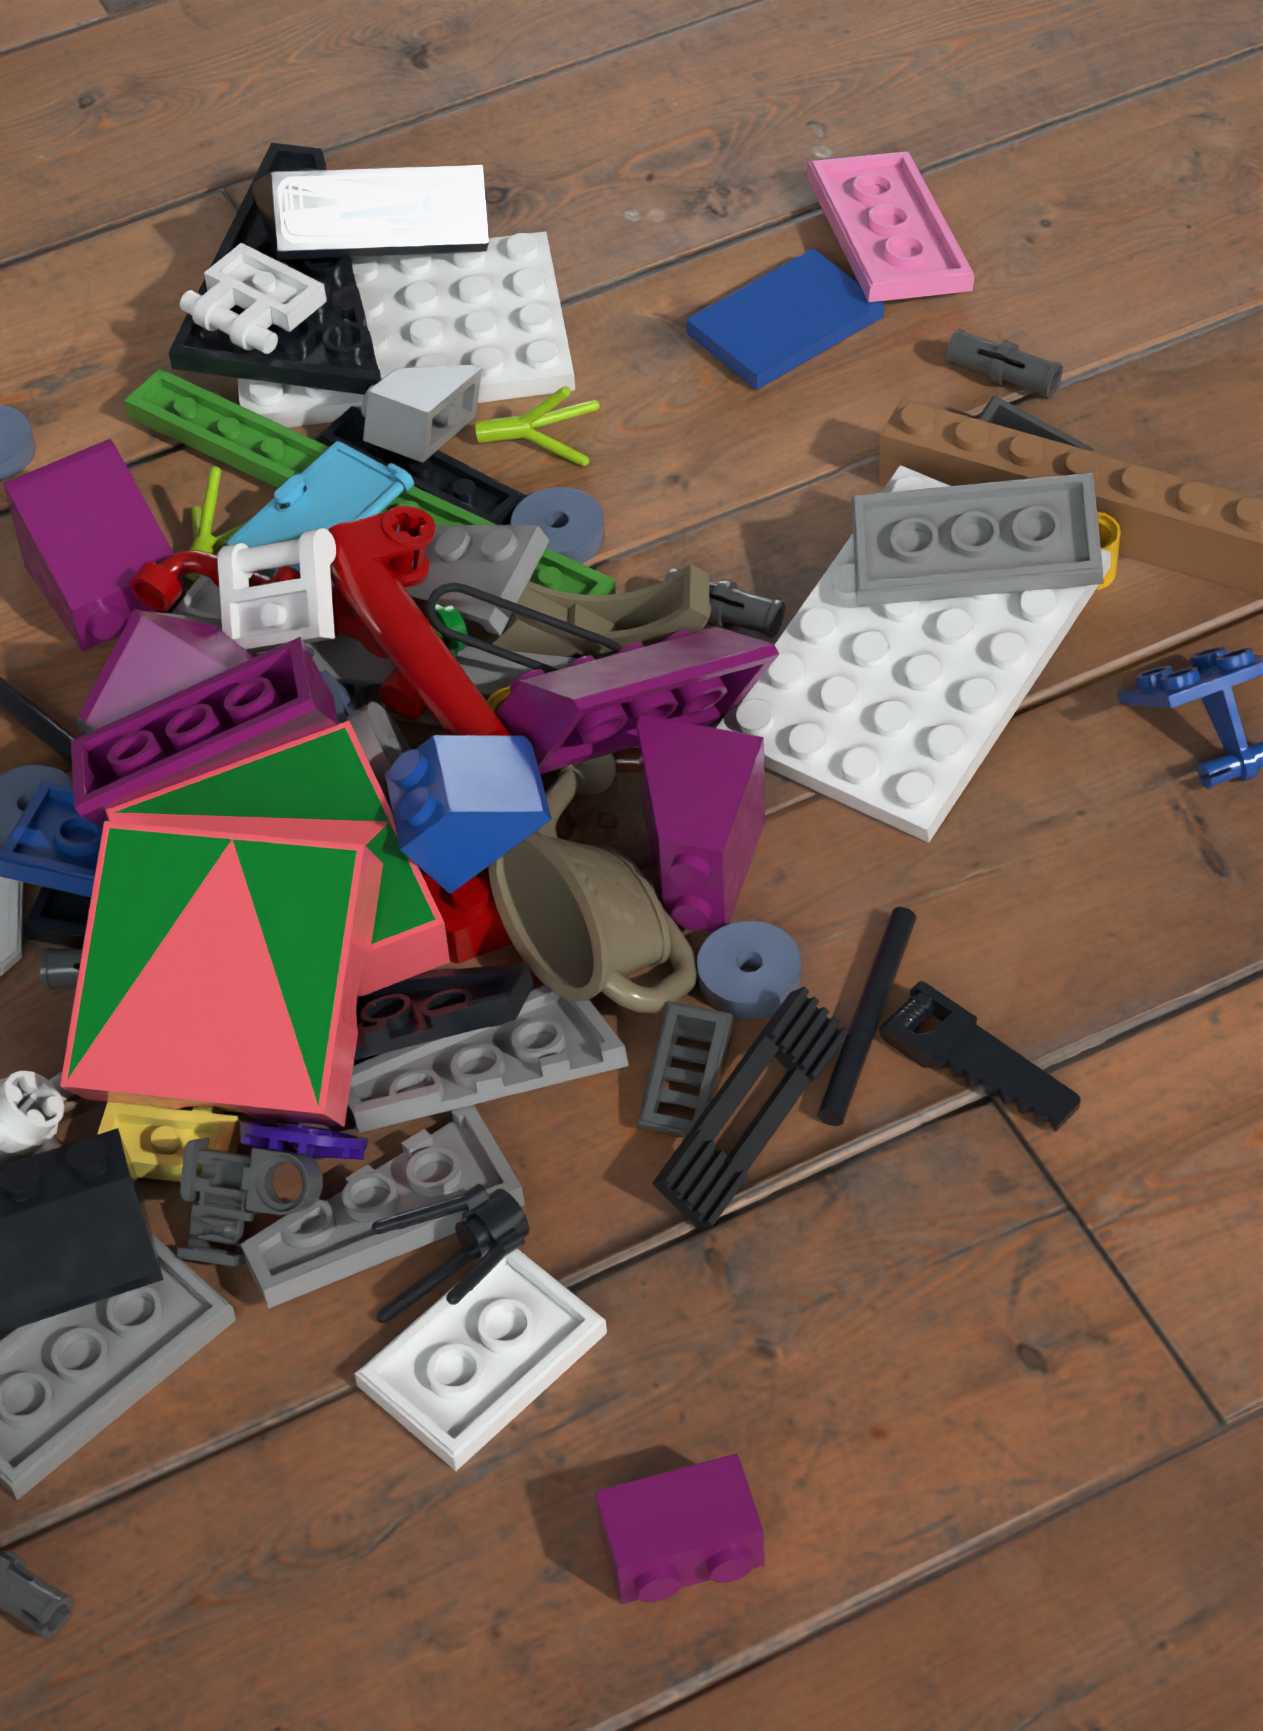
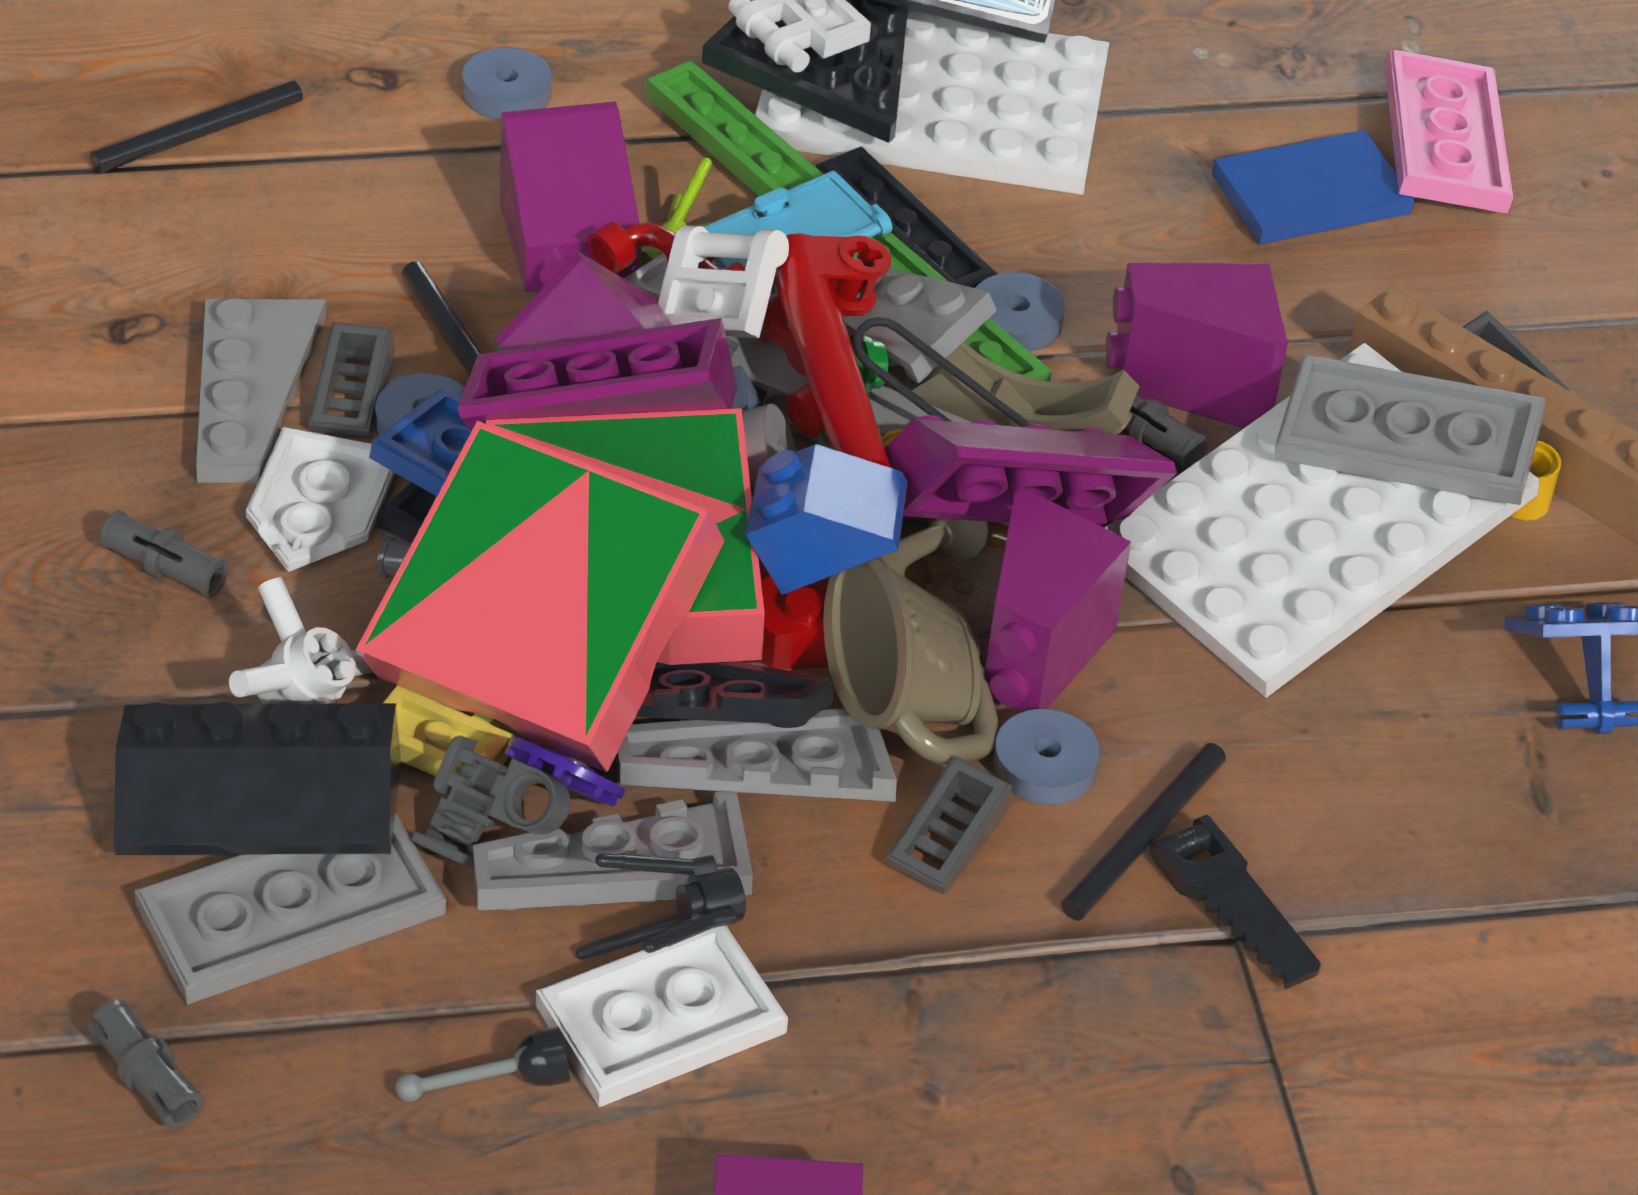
camera: 10 degrees right, 5 degrees down
(382, 1444) = (538, 1060): none -> hinge
(420, 408) = (925, 164): light grey slope -> none
(524, 425) = (1020, 211): lime plant -> none
(697, 1175) = (926, 922): black container -> none
(746, 505) = (1201, 337): none -> magenta slope
(1004, 363) = (1511, 287): dark grey pin -> none

